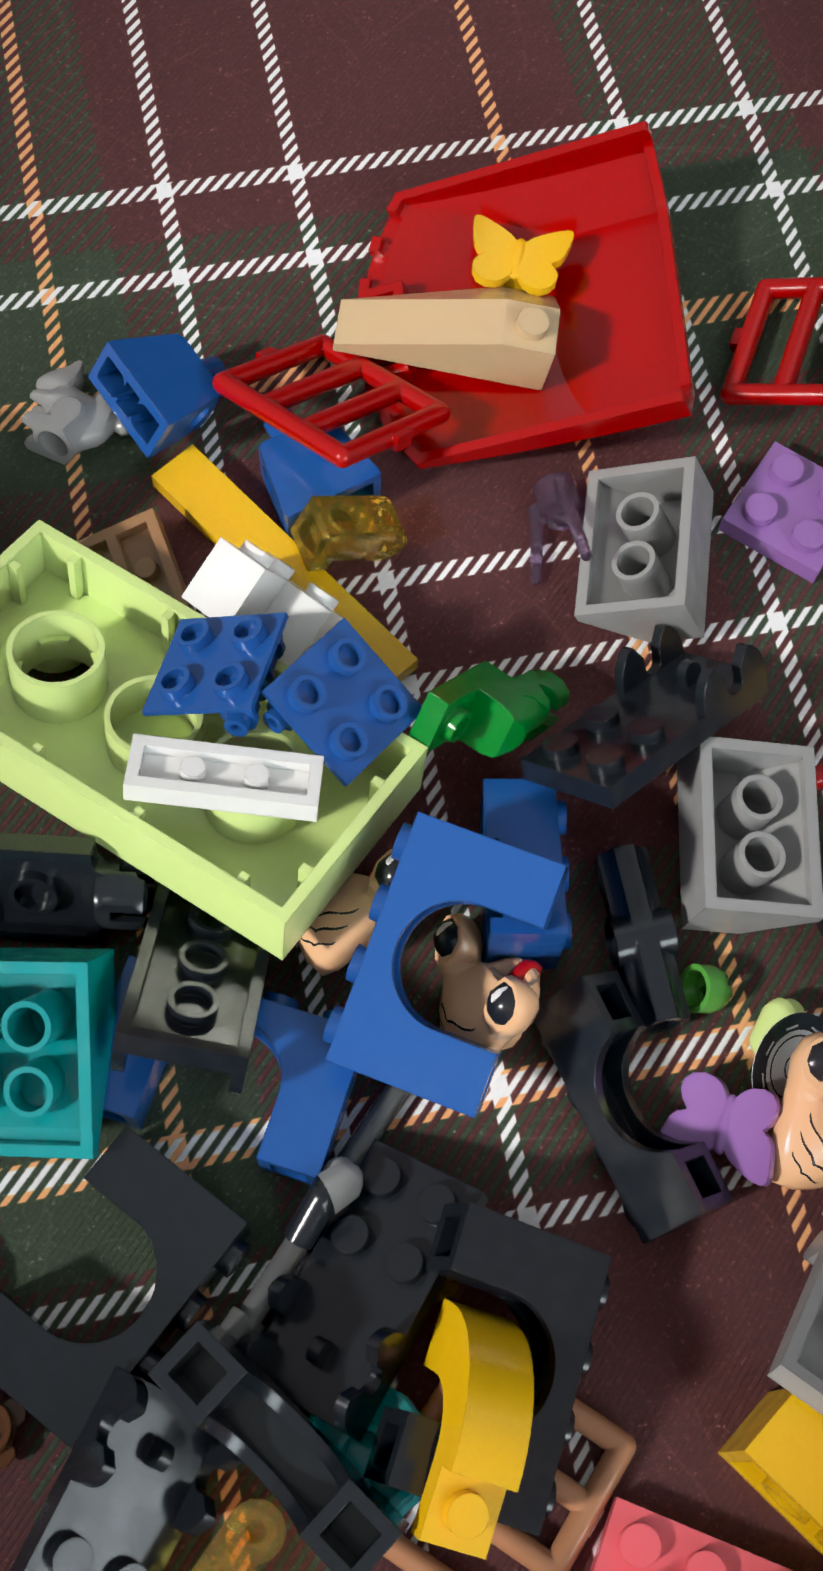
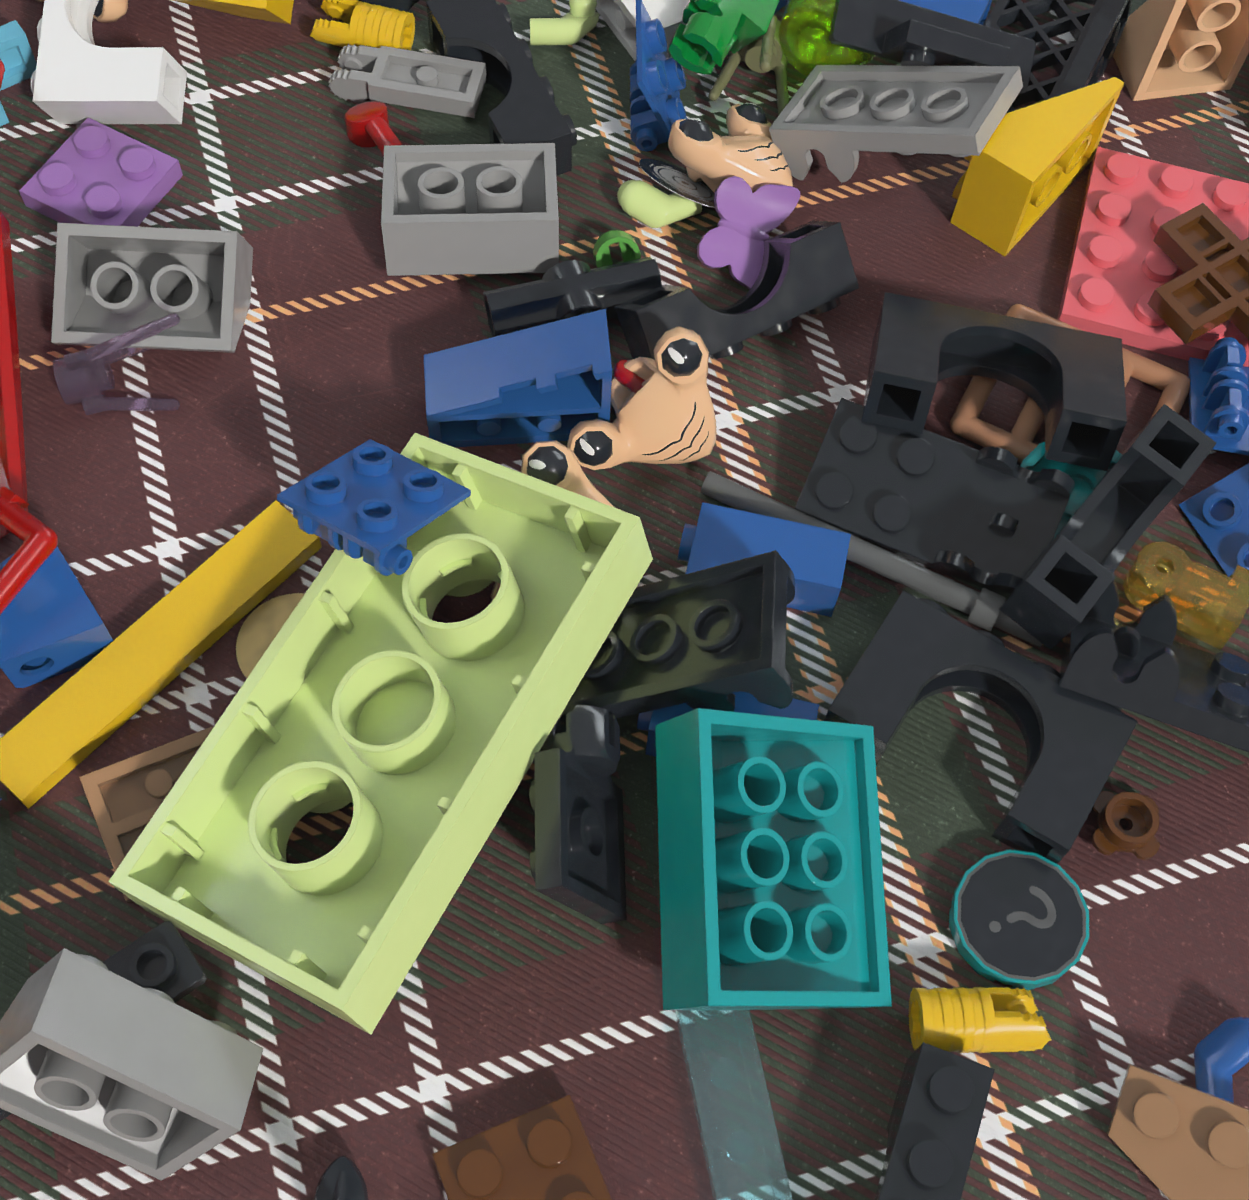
camera: 95 degrees left, 5 degrees down
(219, 668) = (335, 623): blue hinge -> none
(223, 777) = (475, 599): white plate -> none
(257, 582) = (226, 629): white brick -> none
(326, 1196) = (871, 530): arm -> none
(347, 530) = (118, 574): clear yellow leg -> none
(378, 1026) = (565, 407): blue arch -> none
(483, 1427) = (1039, 357): yellow arch -> none
(490, 709) = (352, 401): green plate -> none
(648, 720) = (367, 274): black hinge -> none

